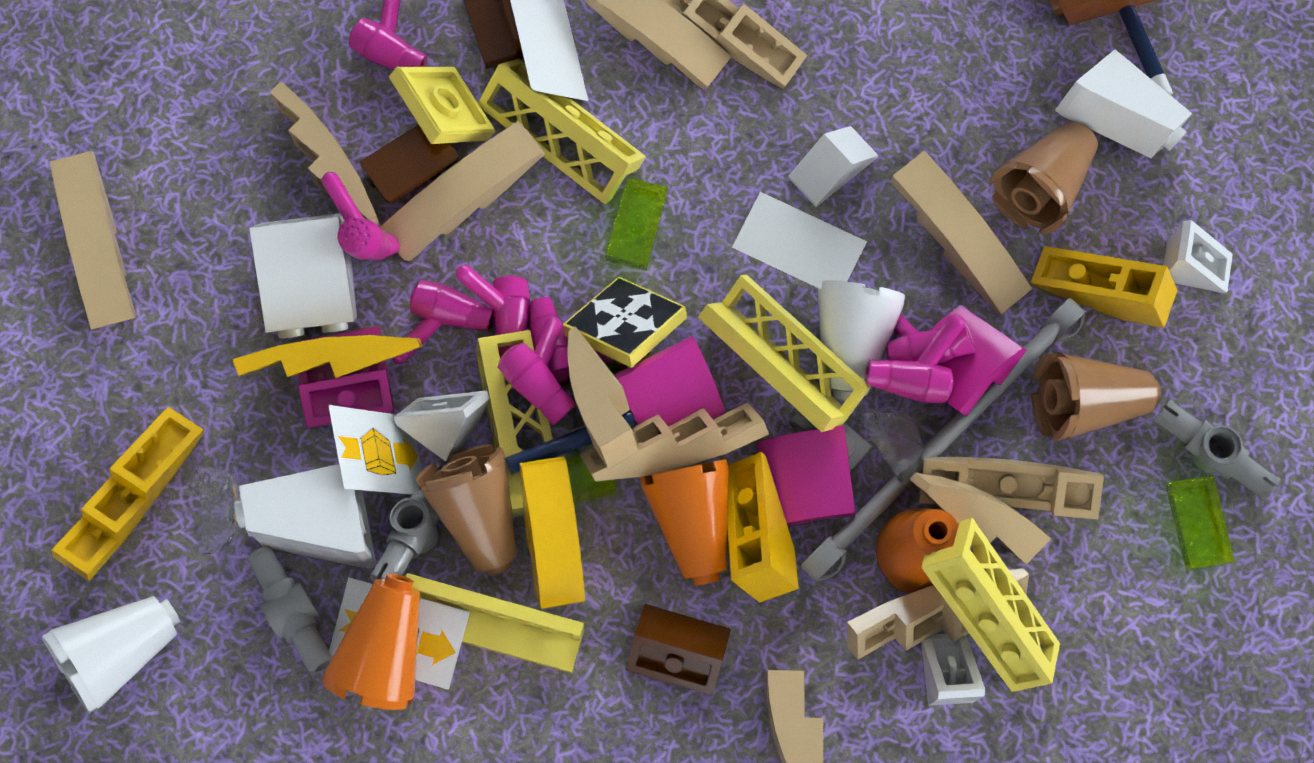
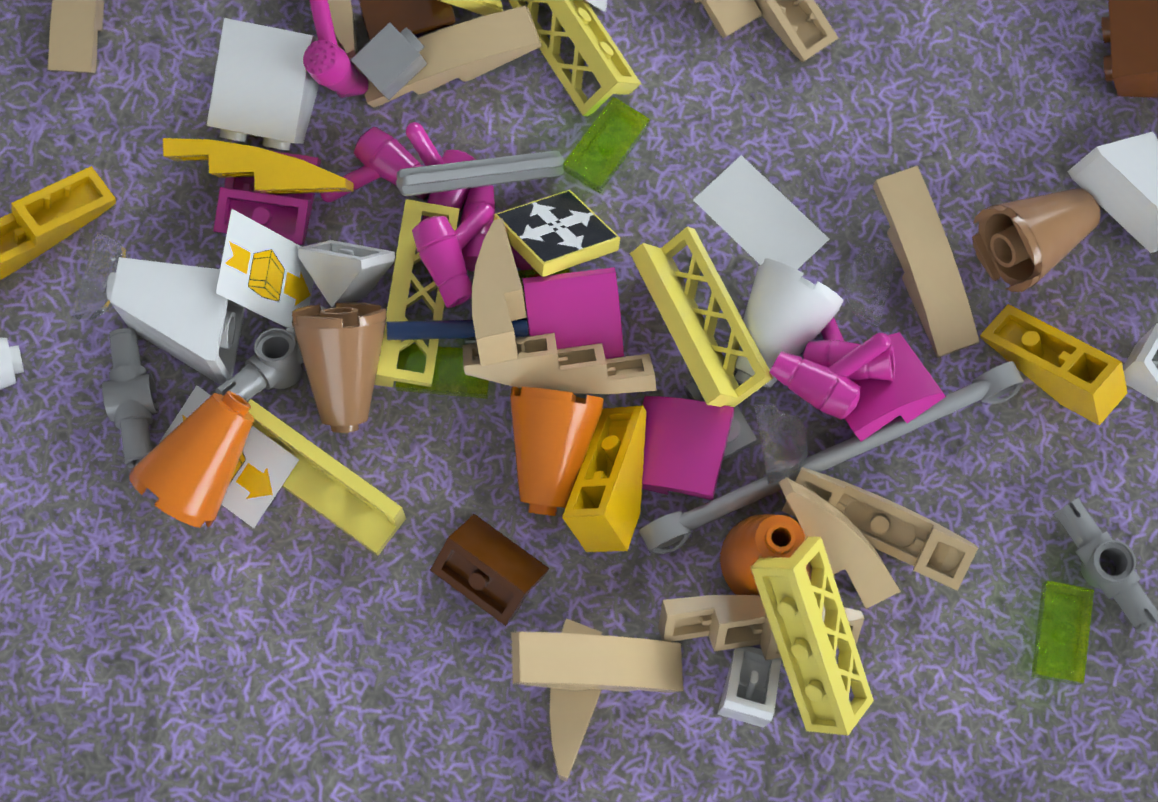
camera: 20 degrees right, 0 degrees up
(415, 213) = (391, 59): none -> light grey brick
(535, 290) = (479, 173): none -> light grey axle
(552, 532) = (405, 409): yellow slope -> none
(811, 700) = (595, 662): none -> tan slope
(831, 164) = (822, 151): white slope -> none
(1088, 395) = (997, 464): medium nougat cone -> none

